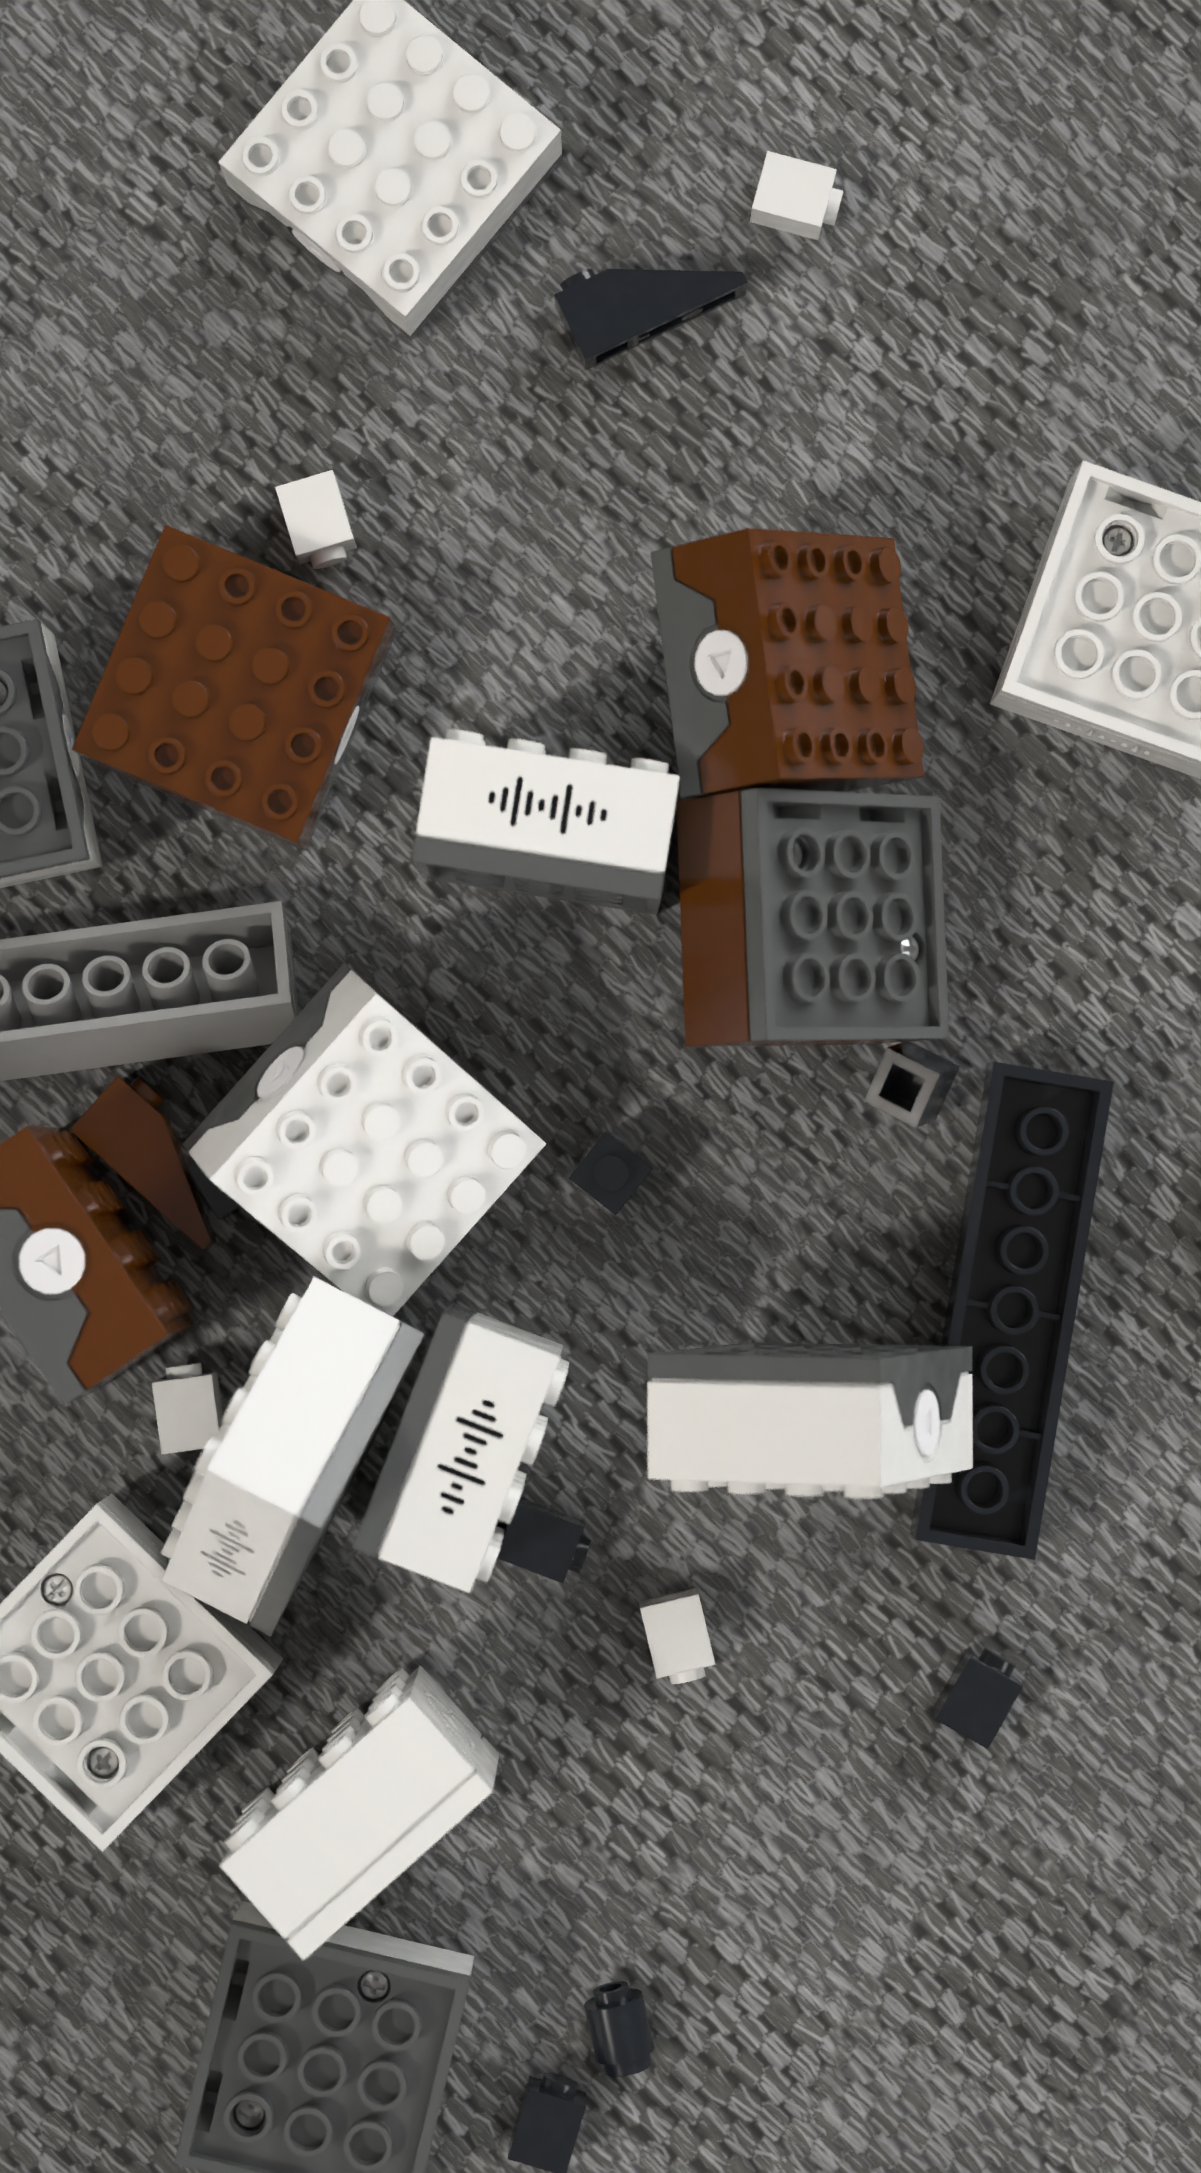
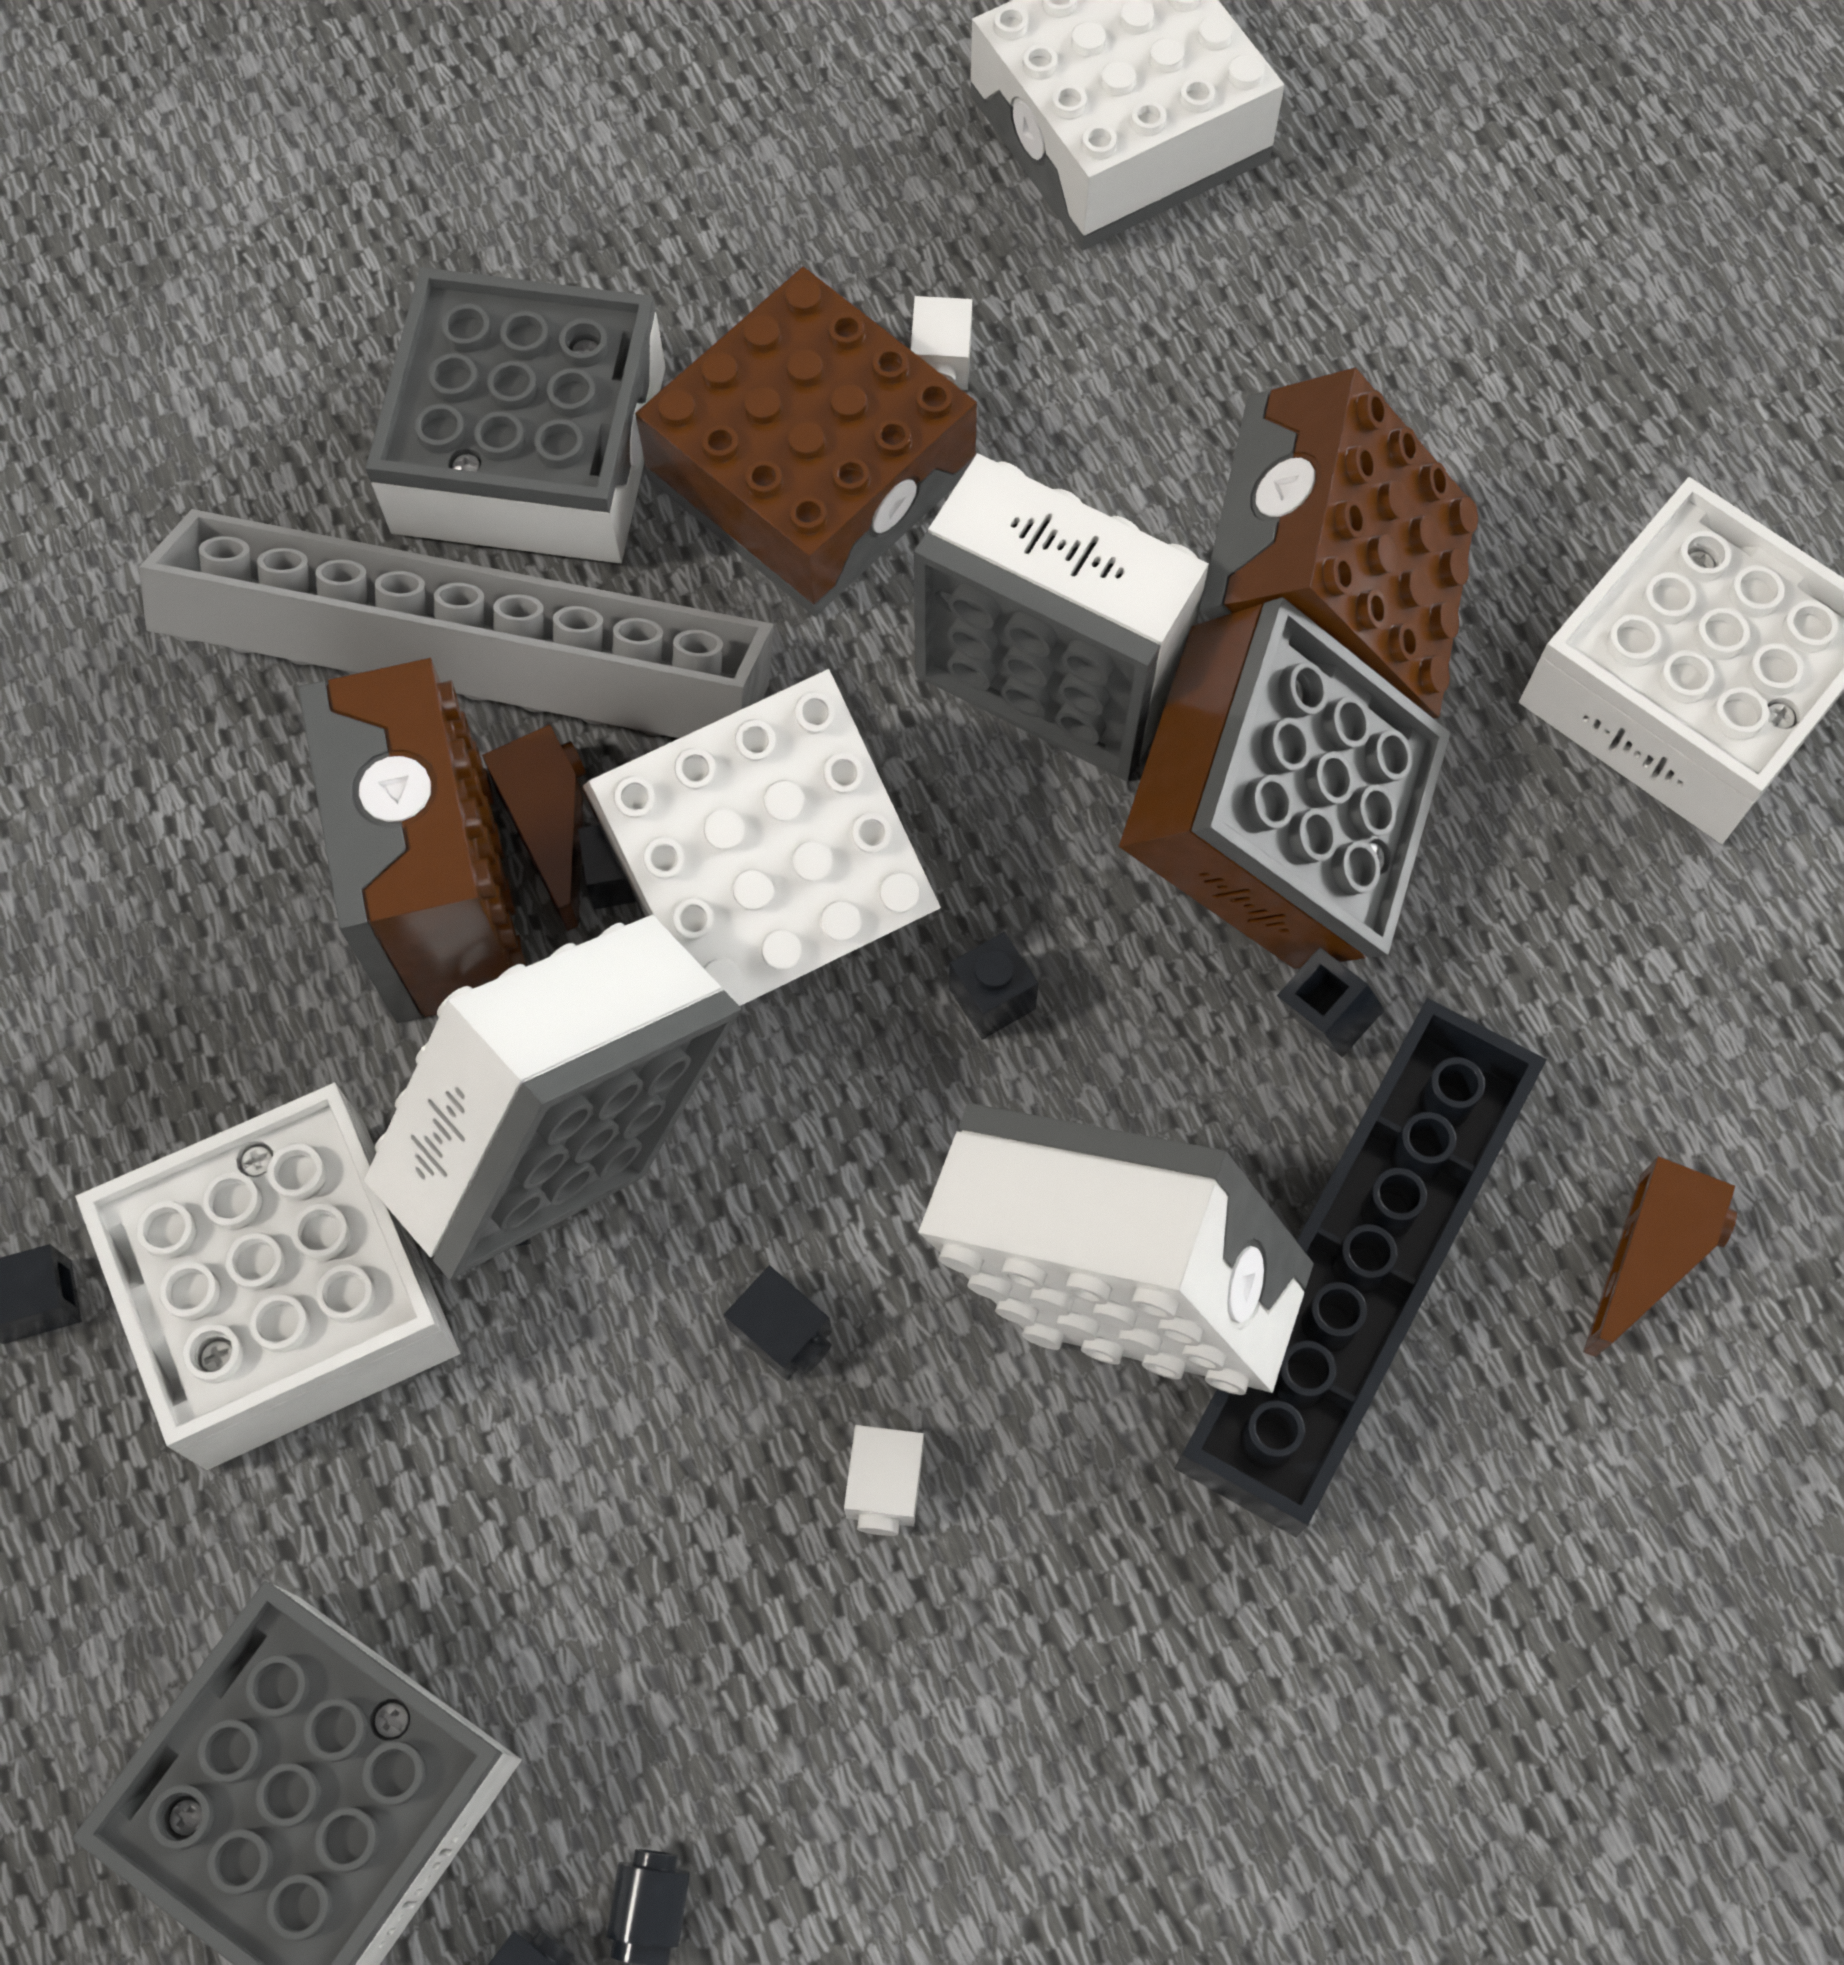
camera: 15 degrees right, 20 degrees down
(359, 1809) = (455, 1505): white piece -> none
(461, 1448) = (734, 1156): white piece -> none
(631, 306) = (1298, 273): black slope -> none
(795, 196) = (1471, 235): white brick -> none
(978, 1696) = (1191, 1672): black brick -> none

